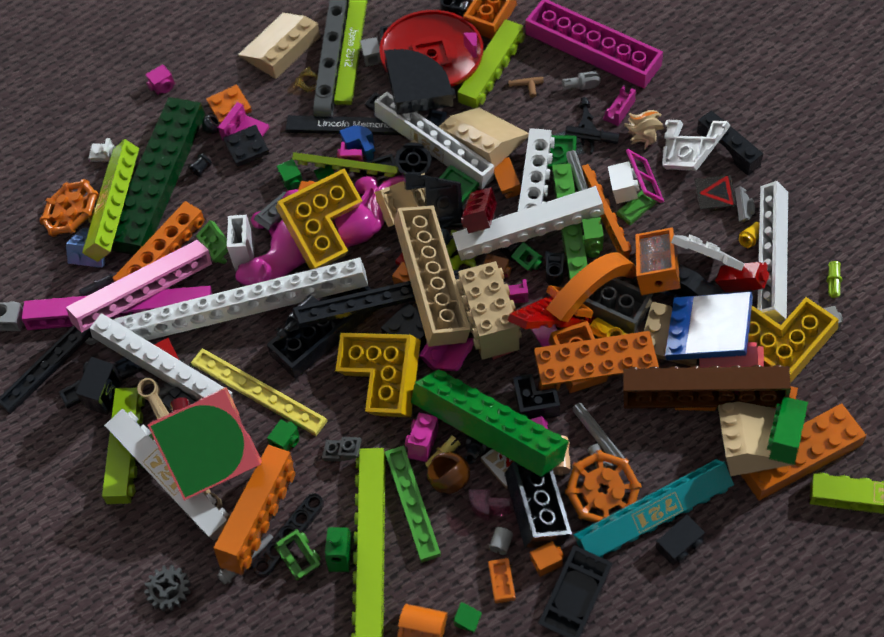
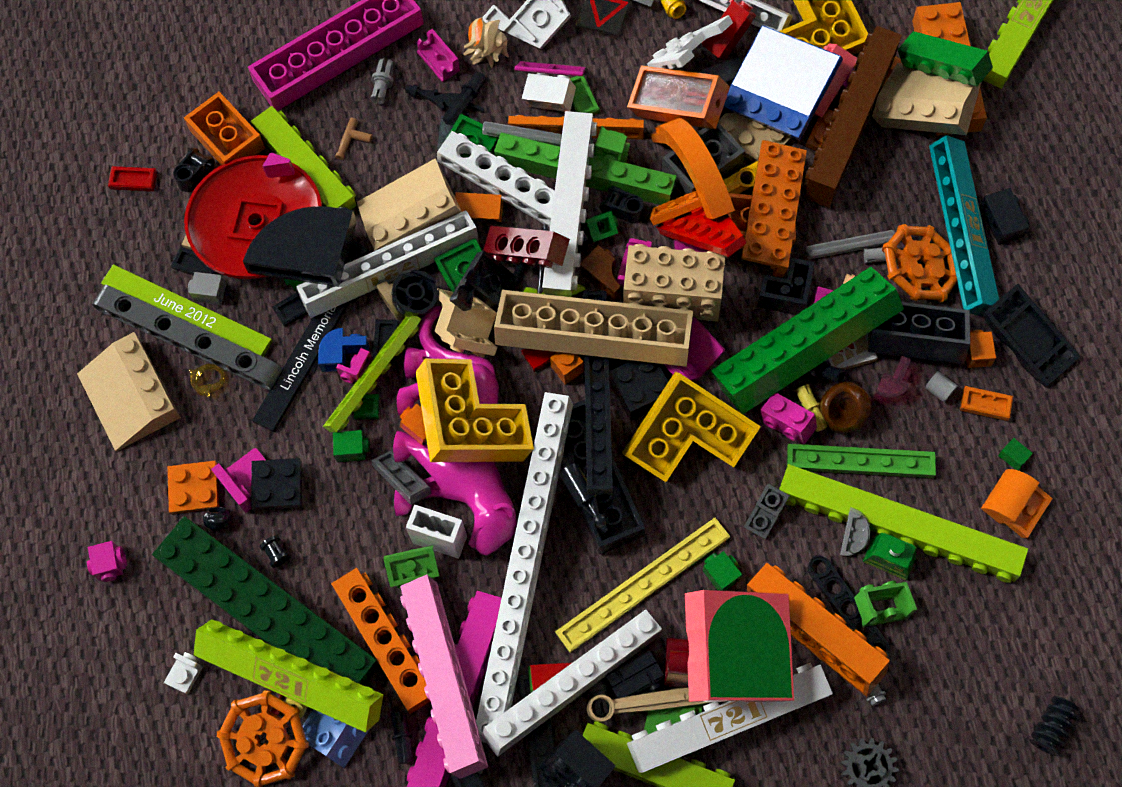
camera: 70 degrees left, 10 degrees up
(347, 515) = (856, 533): none -> light grey tile

